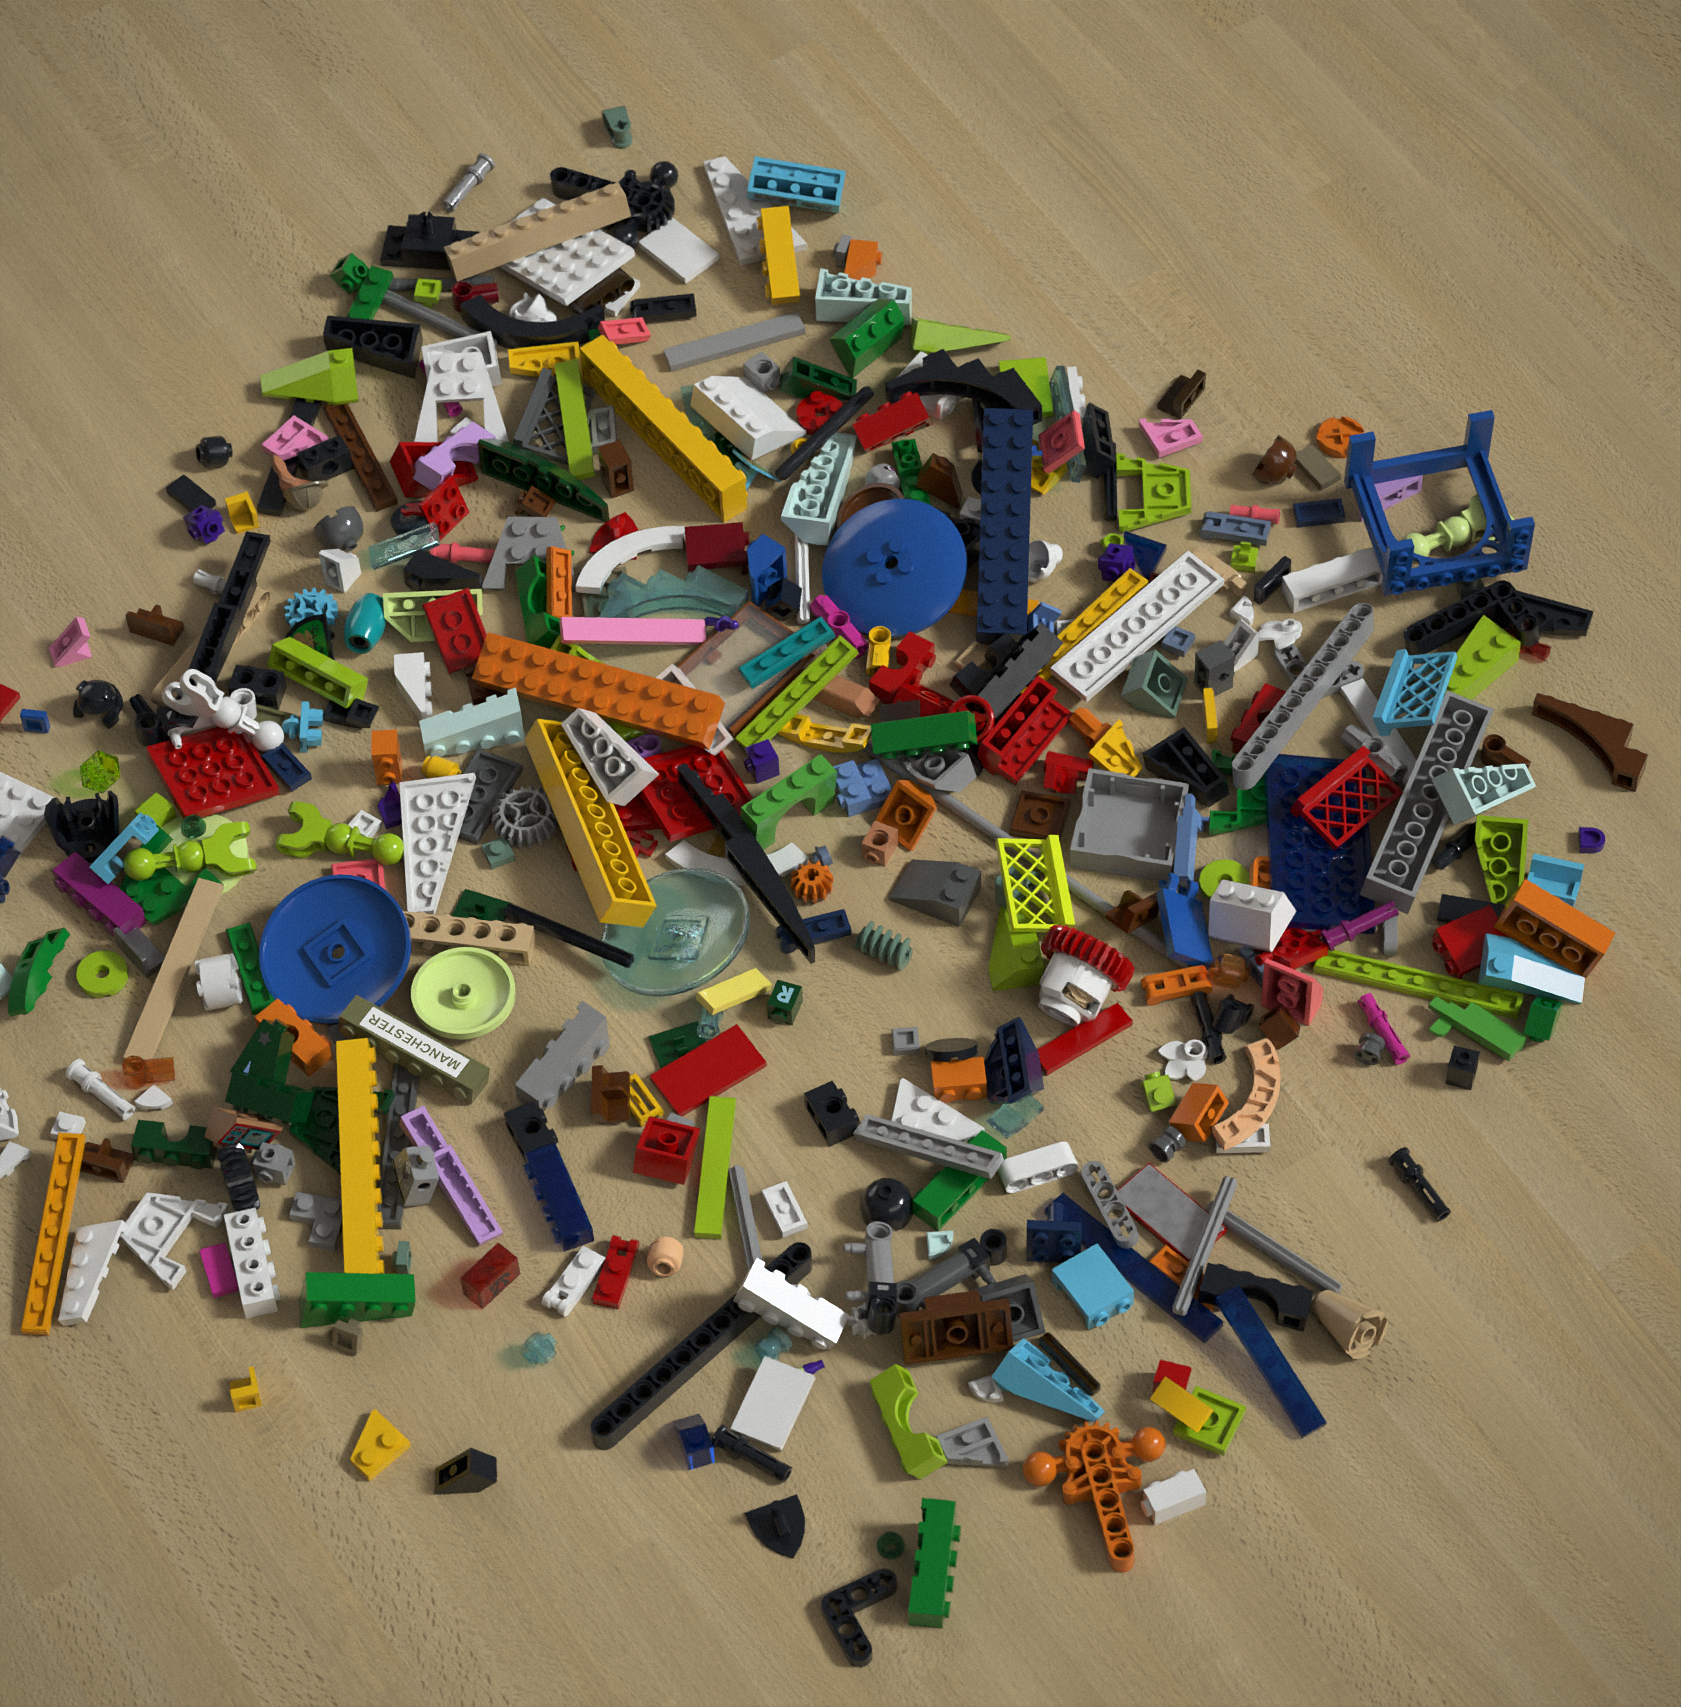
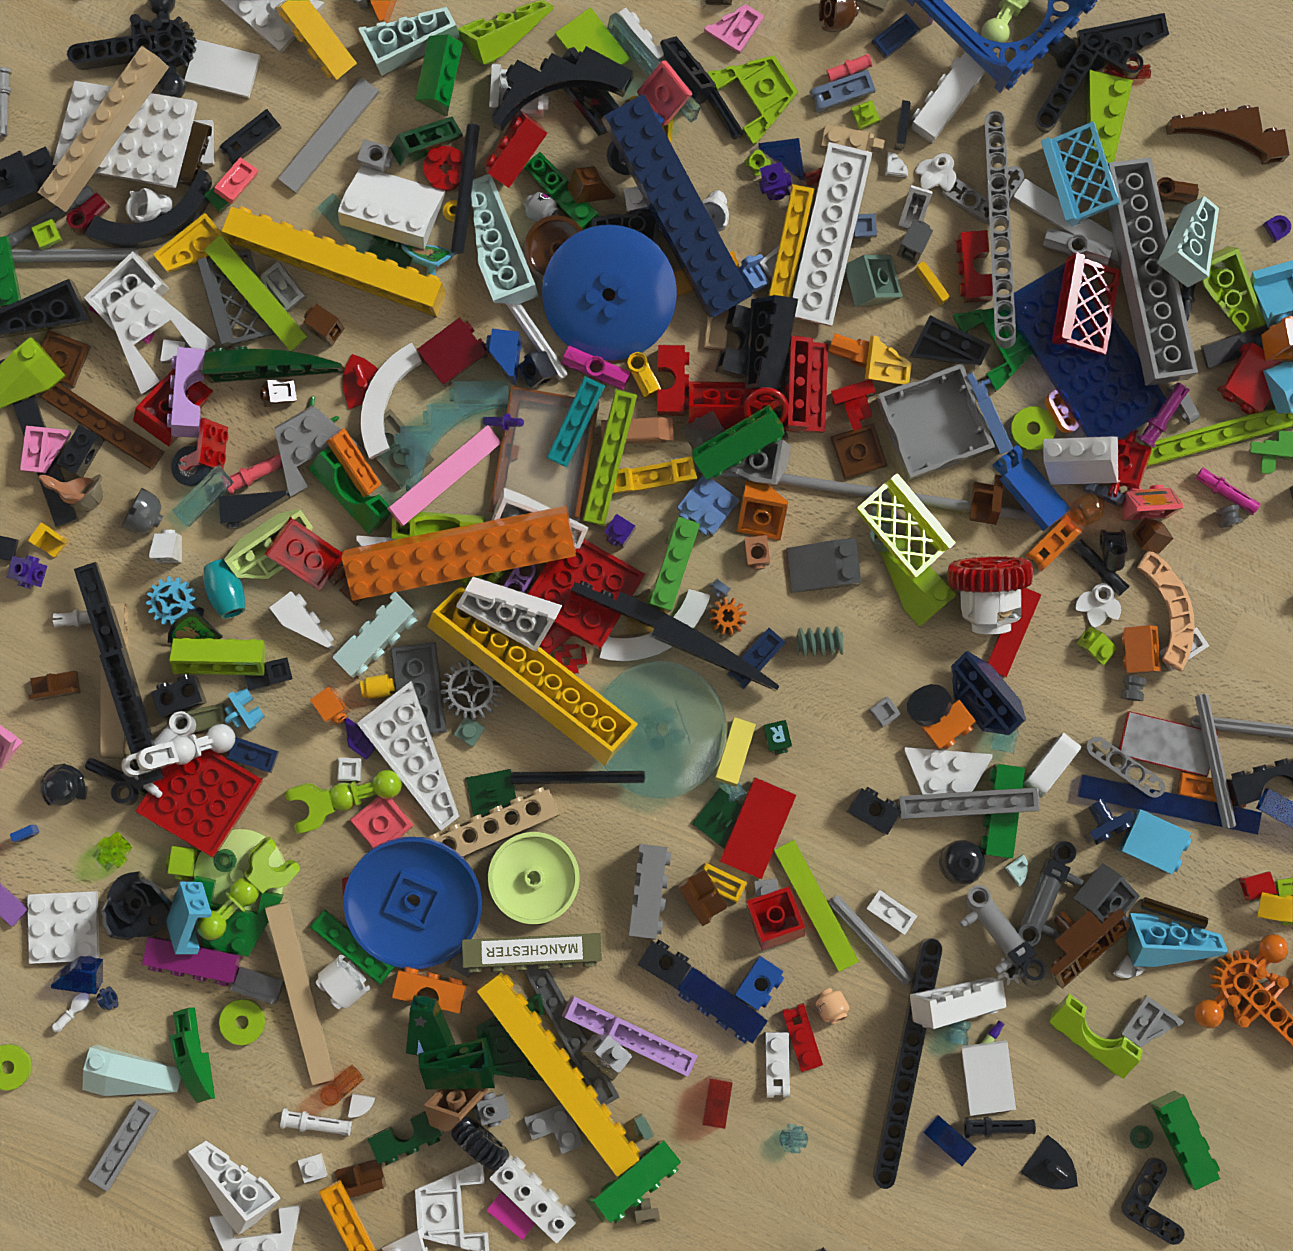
camera: 30 degrees left, 30 degrees up
(373, 390) = (67, 354): none -> reddish brown tile
(617, 1187) = (747, 990): none -> blue brick

